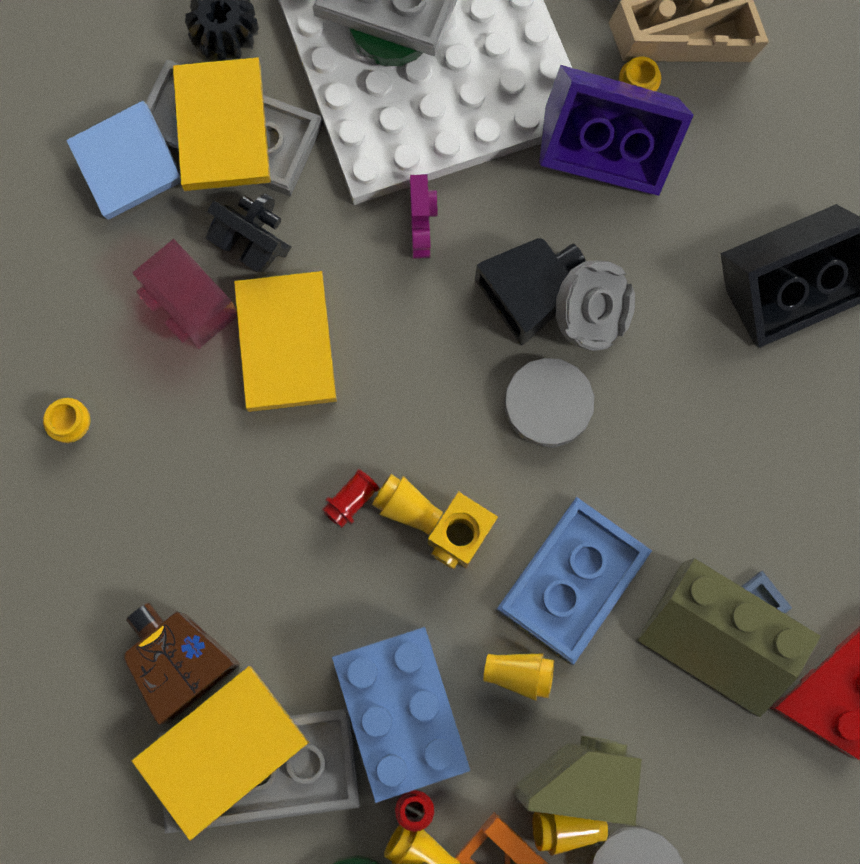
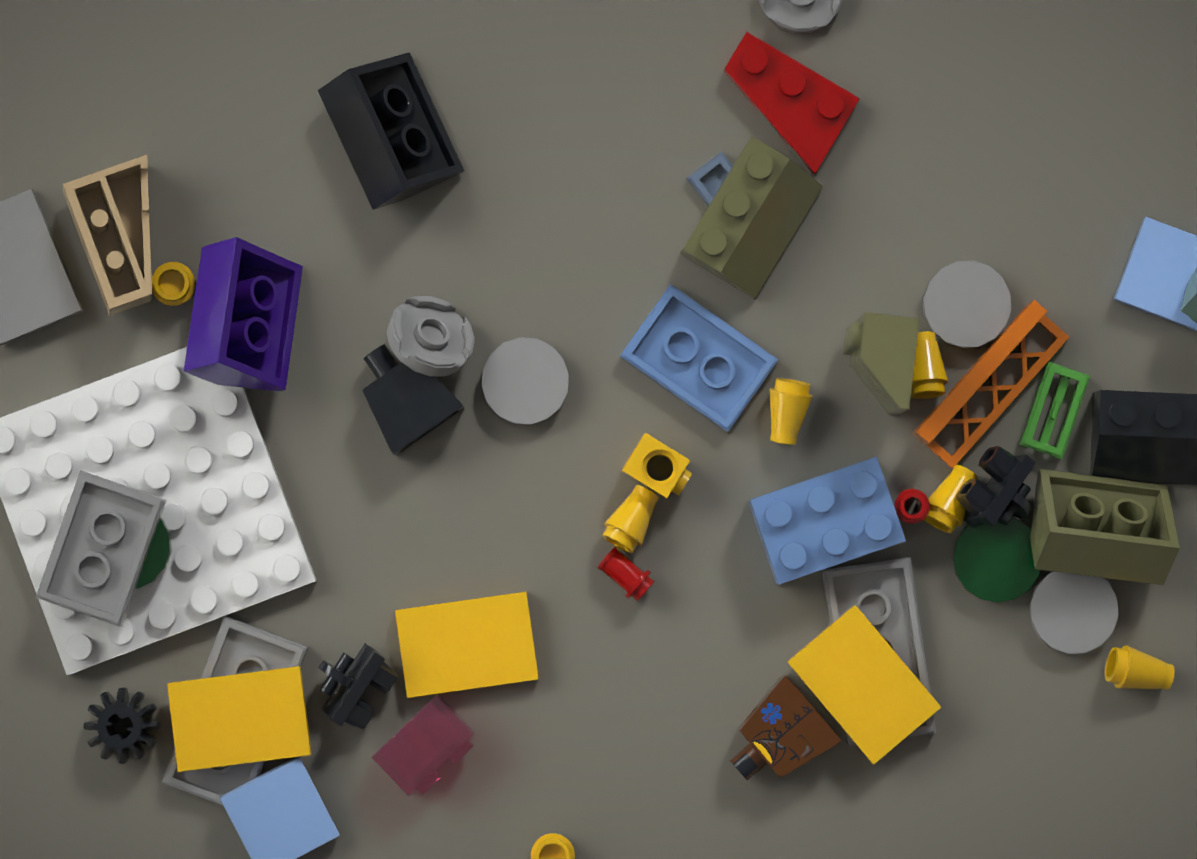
camera: 85 degrees left, 10 degrees up
(422, 207) = (324, 509): magenta plate -> none

